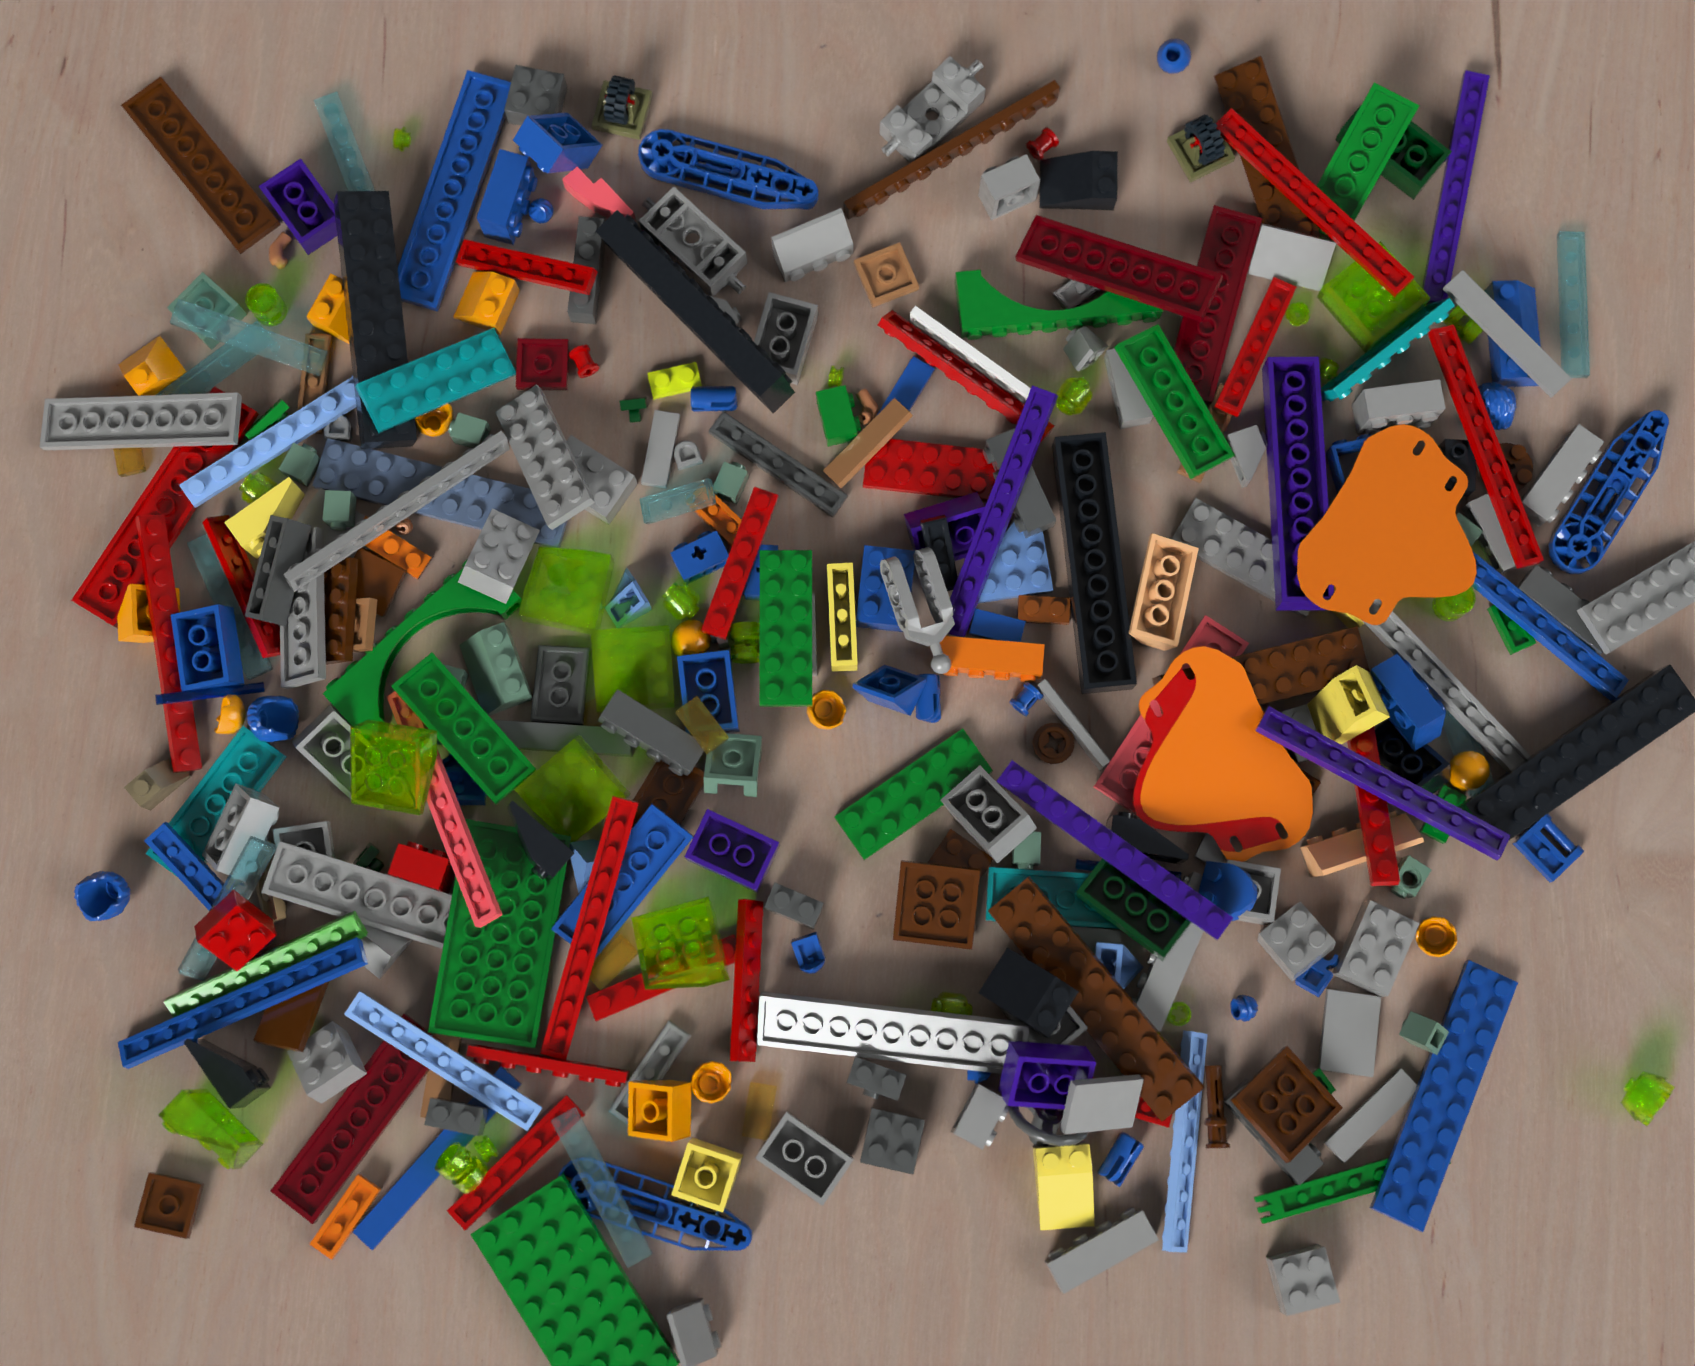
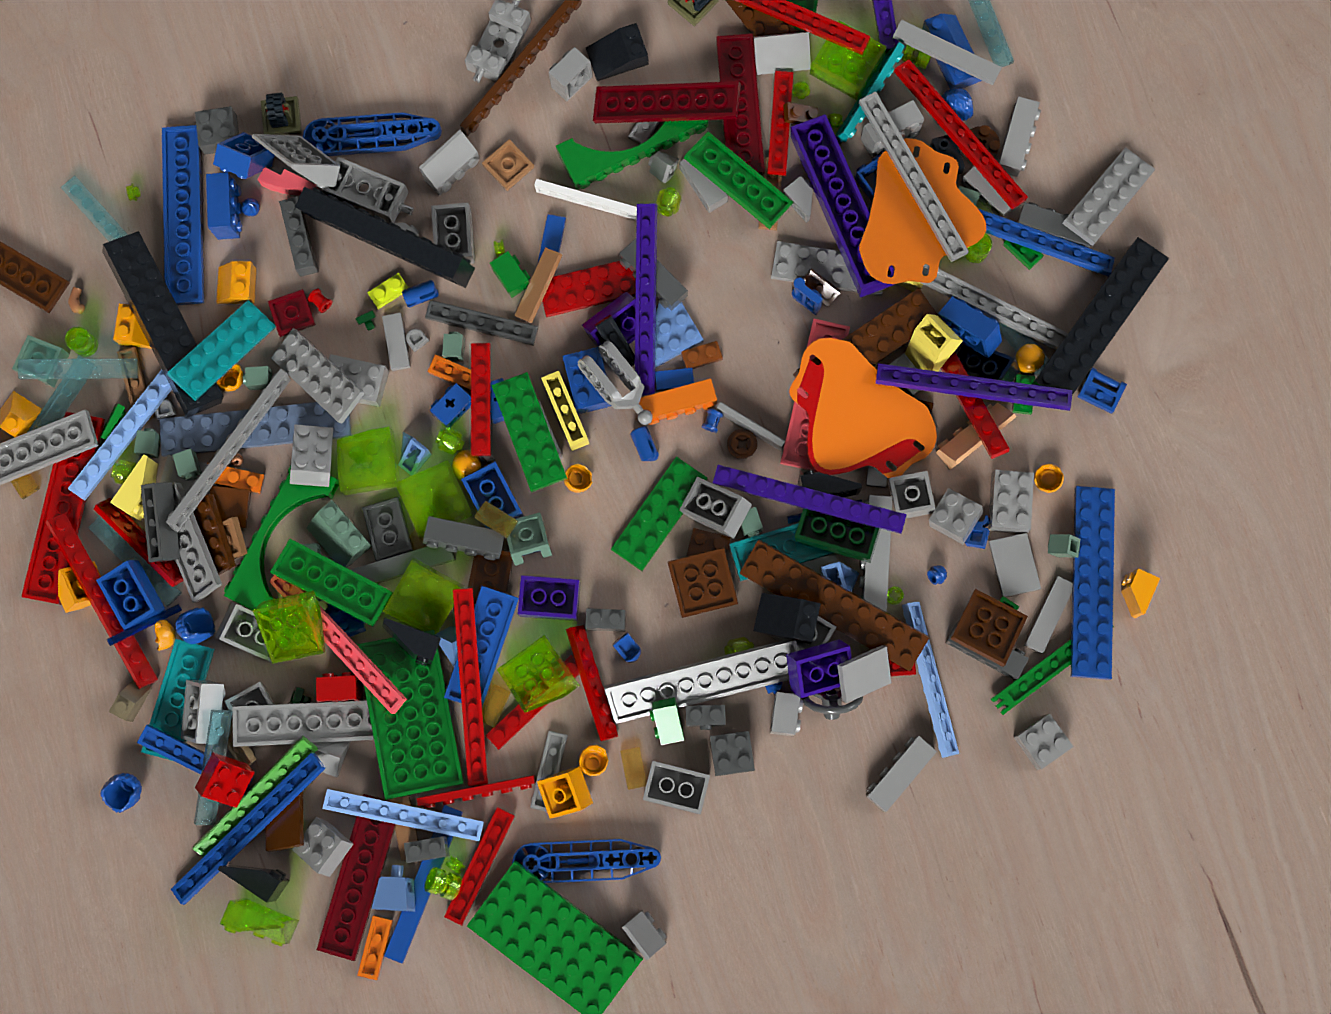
camera: 15 degrees left, 0 degrees up
(169, 1205) = (249, 986): reddish brown plate -> none
(302, 205) = (81, 263): dark purple brick -> none
(396, 1155) = (395, 892): none -> medium blue torso
(527, 267) = (255, 249): red plate -> none
(601, 1187) = (544, 859): clear light blue tile -> none
(627, 172) = (302, 157): none -> light grey slope
(677, 501) = (421, 373): clear light blue tile -> none
(707, 1174) = (614, 824): light yellow slope -> none
(742, 634) = (500, 448): clear neon green wheel -> none
(825, 1067) = (667, 720): none -> brick
(869, 408) = (531, 261): nougat arm -> none
(891, 688) = (617, 447): blue slope -> none
(955, 368) = (579, 212): red plate -> none
(1042, 143) = (582, 36): red bush -> none
(1064, 1186) = (860, 740): light yellow slope -> none
(1093, 563) = (724, 311): black brick -> none
(1120, 1158) = (891, 707): blue arm -> none
(1163, 592) = (778, 313): light nougat slope -> none
(1207, 585) = (805, 296): none -> blue plate
(1216, 1122) = (946, 657): reddish brown pin -> none
(1228, 578) = (825, 288): none -> reddish brown plate
(1228, 888) = (896, 496): blue slope -> none
(1285, 343) = (799, 113): none -> reddish brown plate
(1403, 480) = (913, 177): none -> light grey plate
(1418, 872) = (1020, 439): sand green brick -> none
(1500, 1130) = (1138, 591): none -> light orange slope
(1587, 528) = (1050, 165): blue beam -> none
(1646, 1096) = (1227, 532): clear neon green cone -> none

